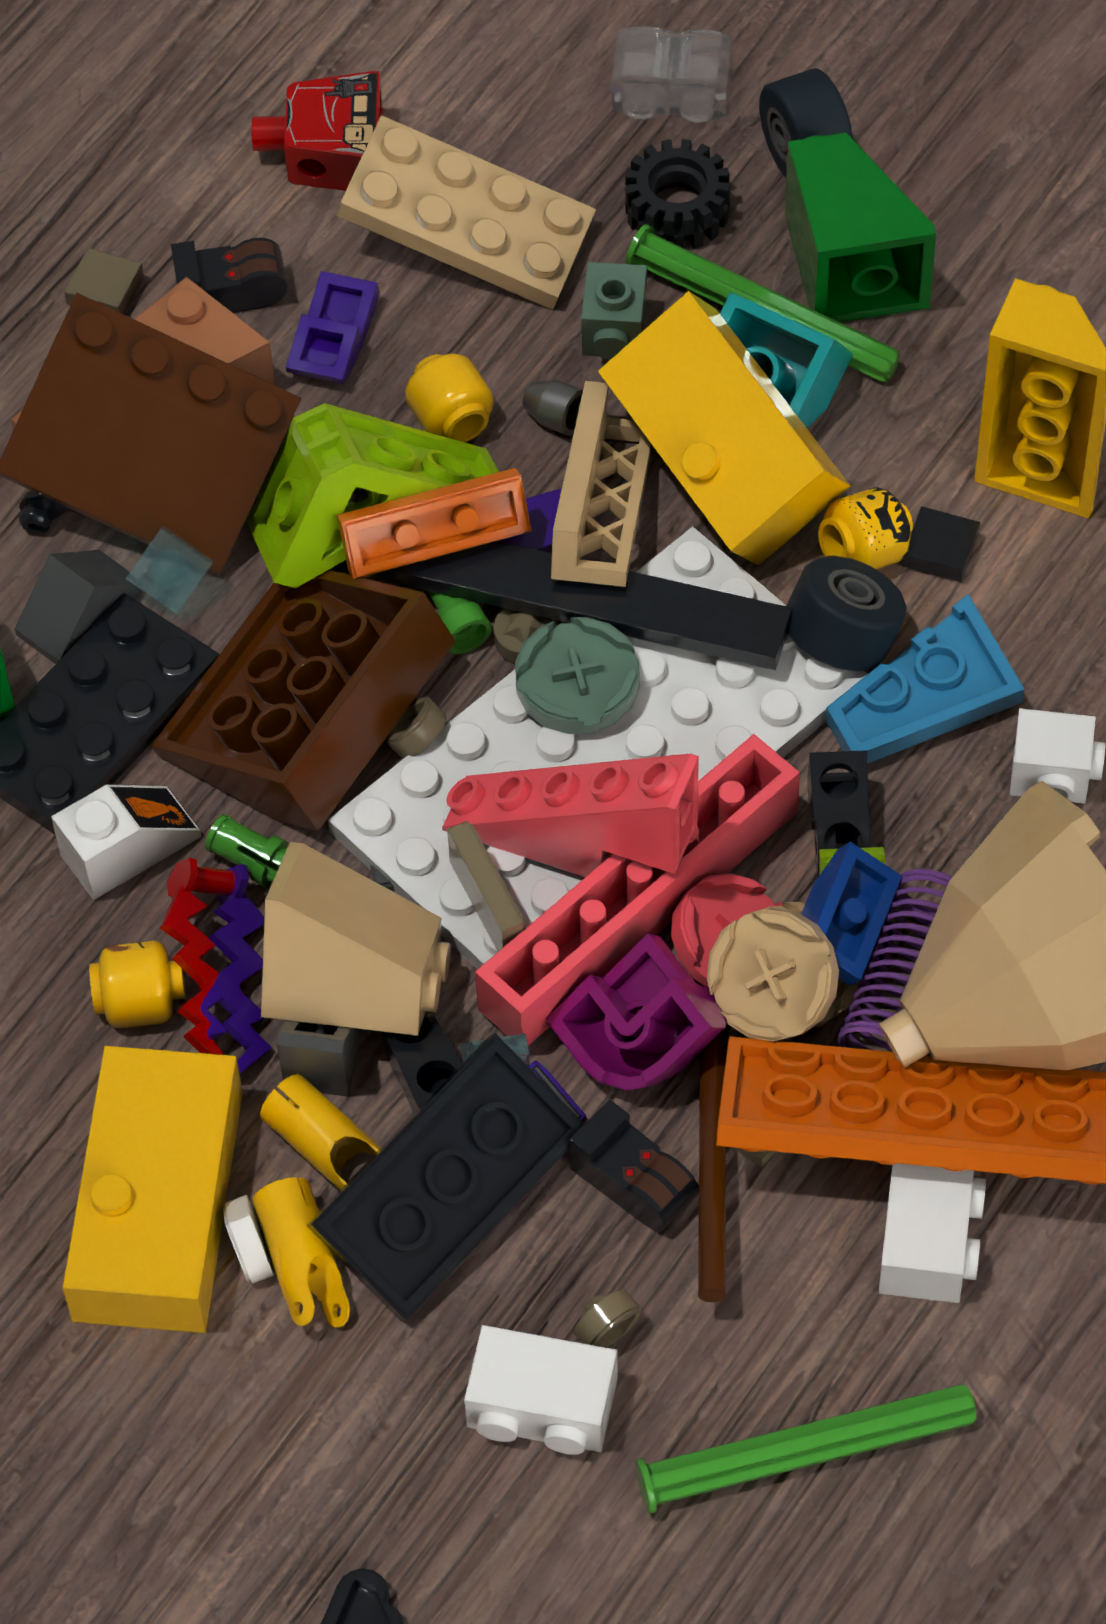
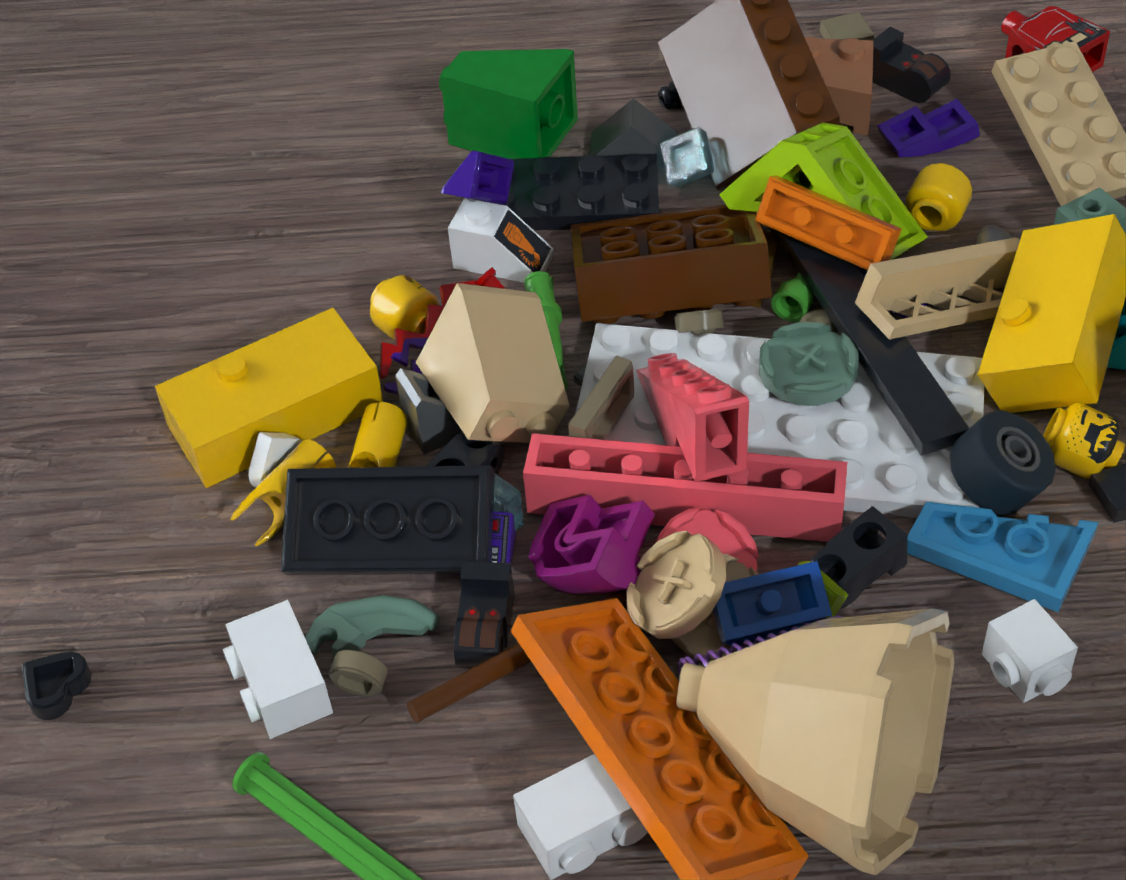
camera: 55 degrees right, 10 degrees down
(61, 785) = (482, 178): none -> dark purple slope
(532, 1276) = (362, 619): none -> sand green piece

